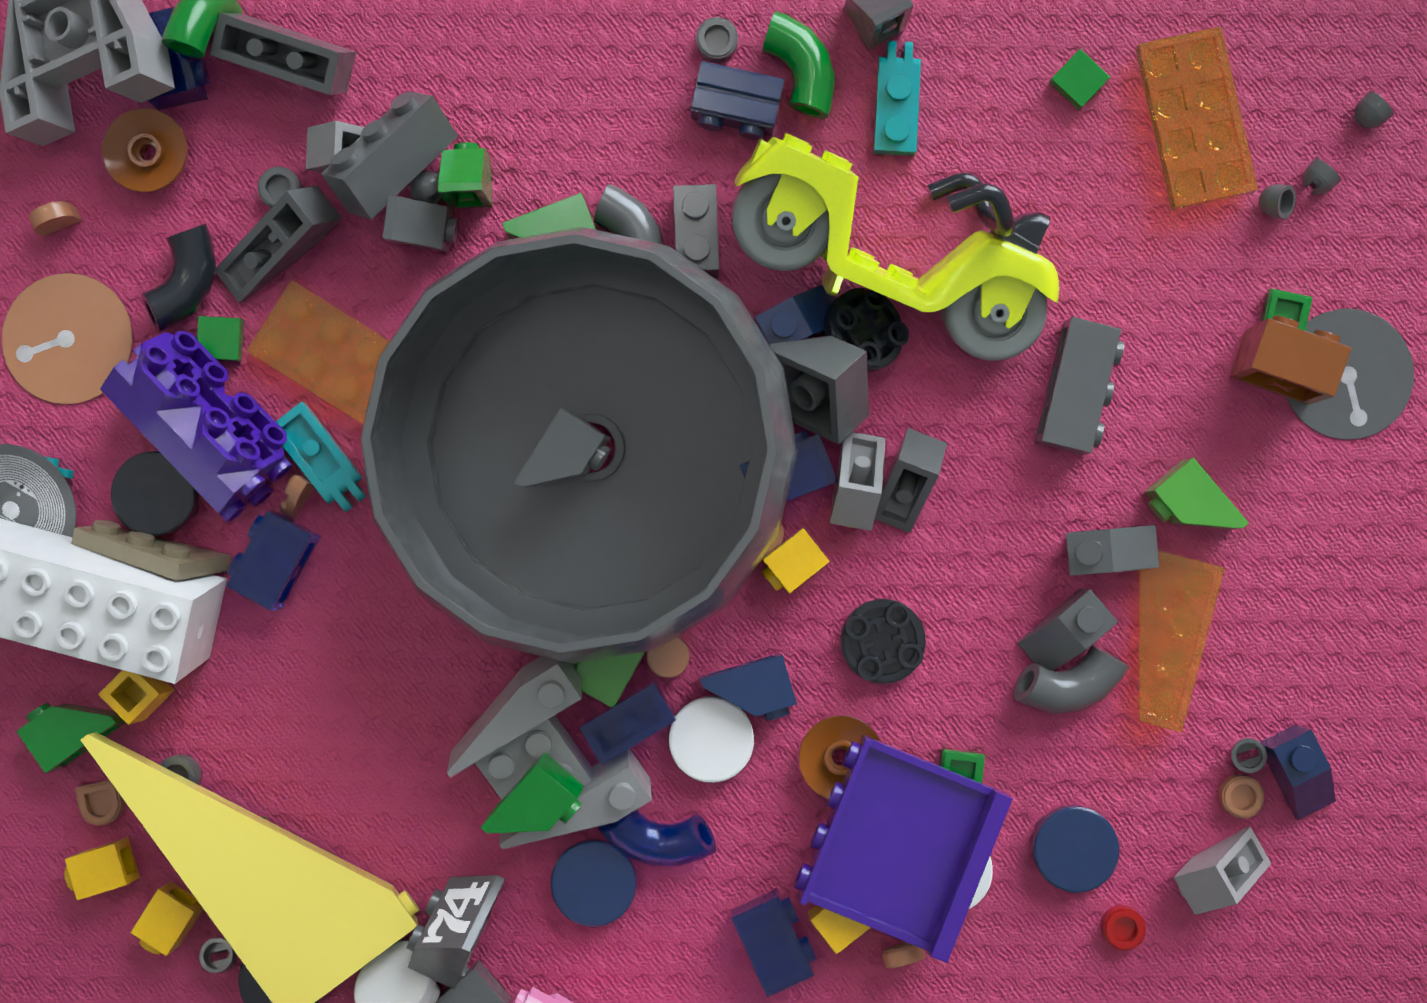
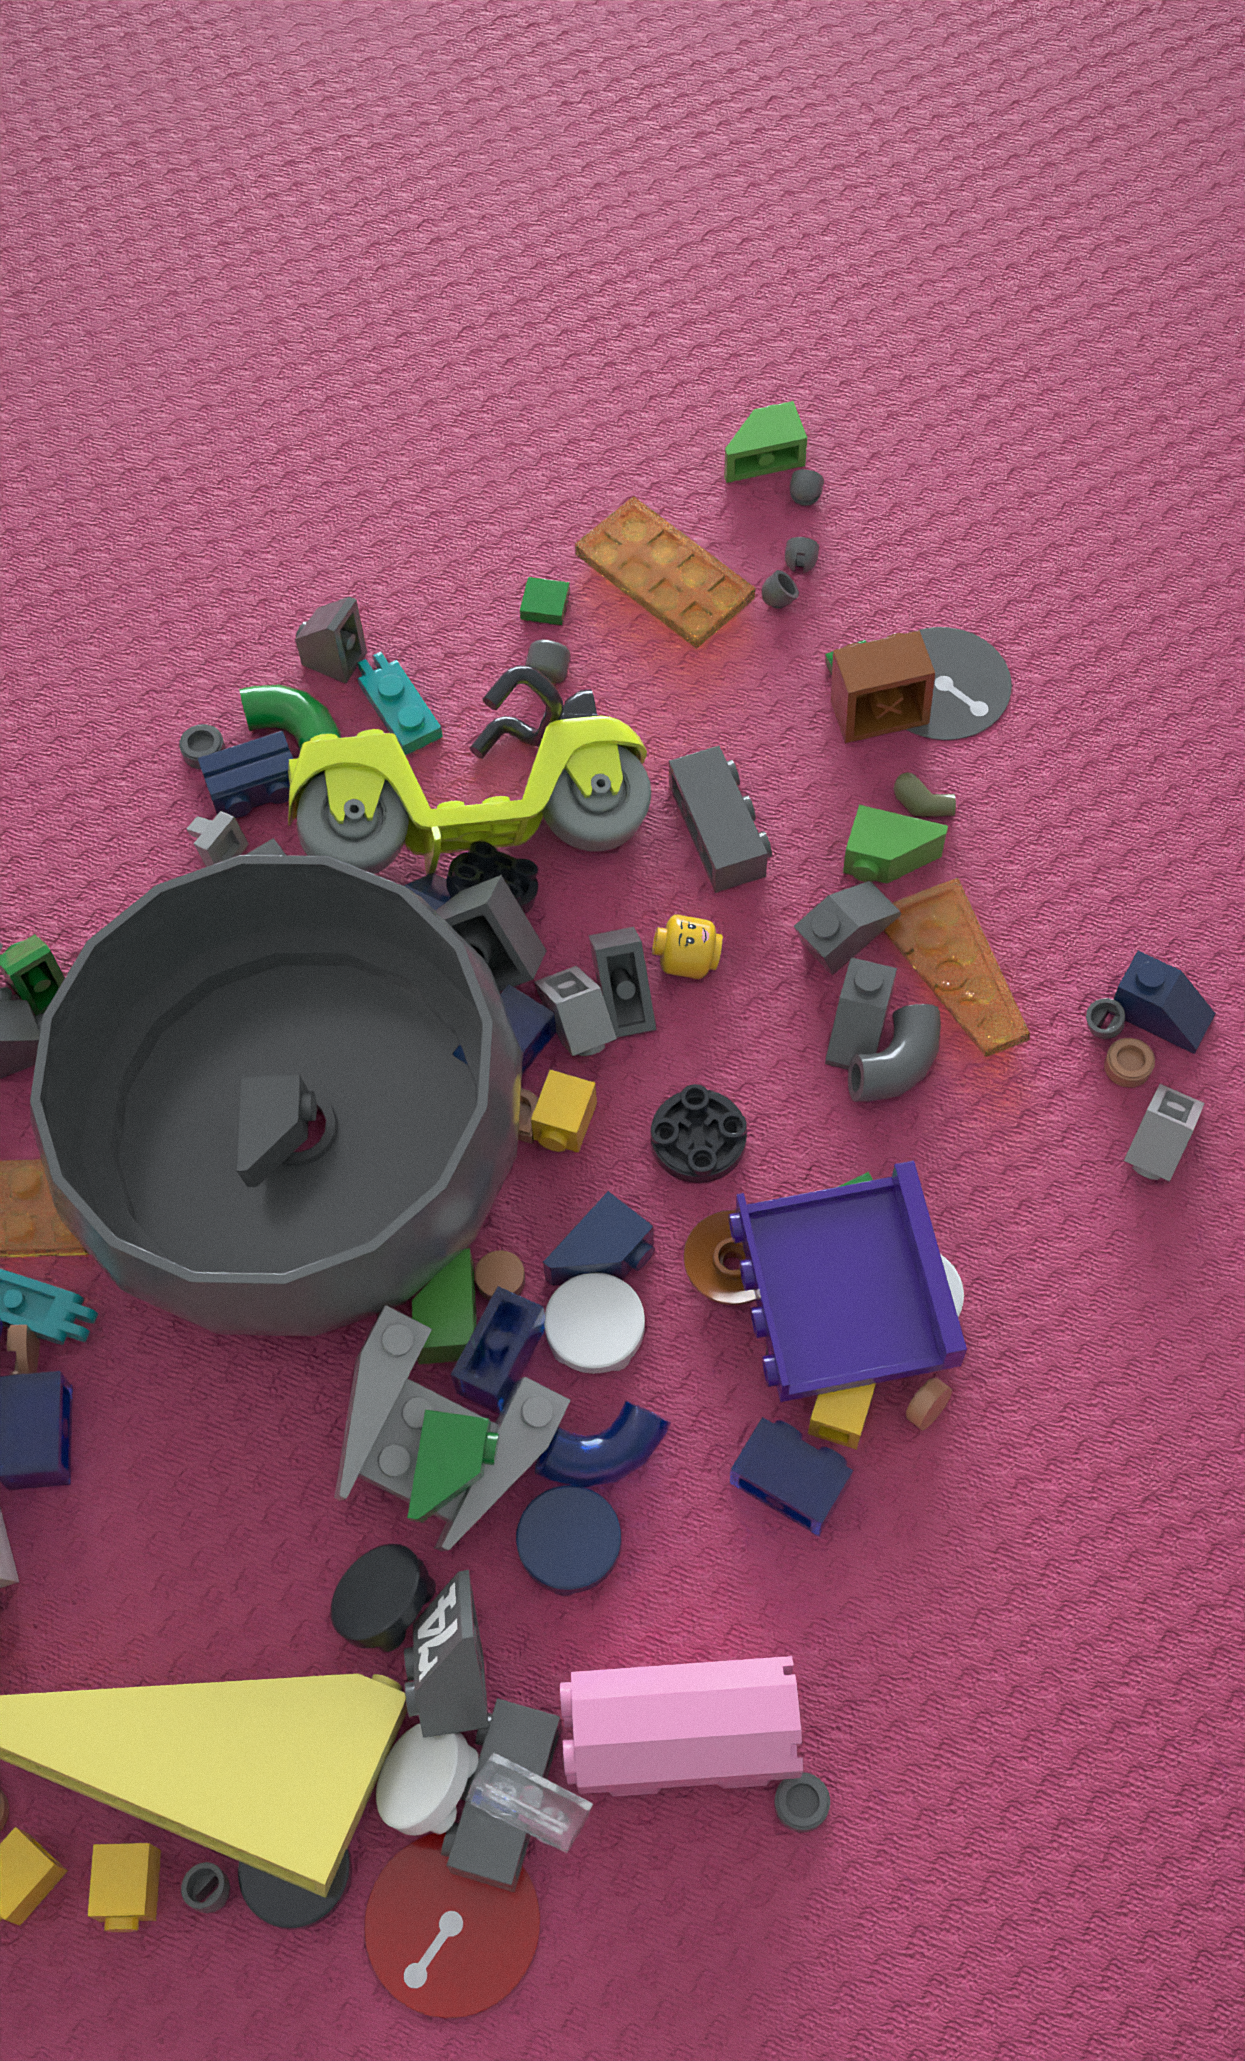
camera: 30 degrees left, 25 degrees down
(440, 844) = (381, 1597): none -> black tile
(675, 147) = (218, 838): none -> light grey tile
(978, 485) = (687, 946): none -> yellow head
(1041, 145) = (549, 659): none -> dark grey piece
(1075, 848) = (1015, 1200): dark blue tile -> none
(1123, 927) = (1117, 1246): red tile -> none
(1248, 472) = (919, 800): none -> olive arm
(1374, 45) = (766, 443): none -> bright green slope

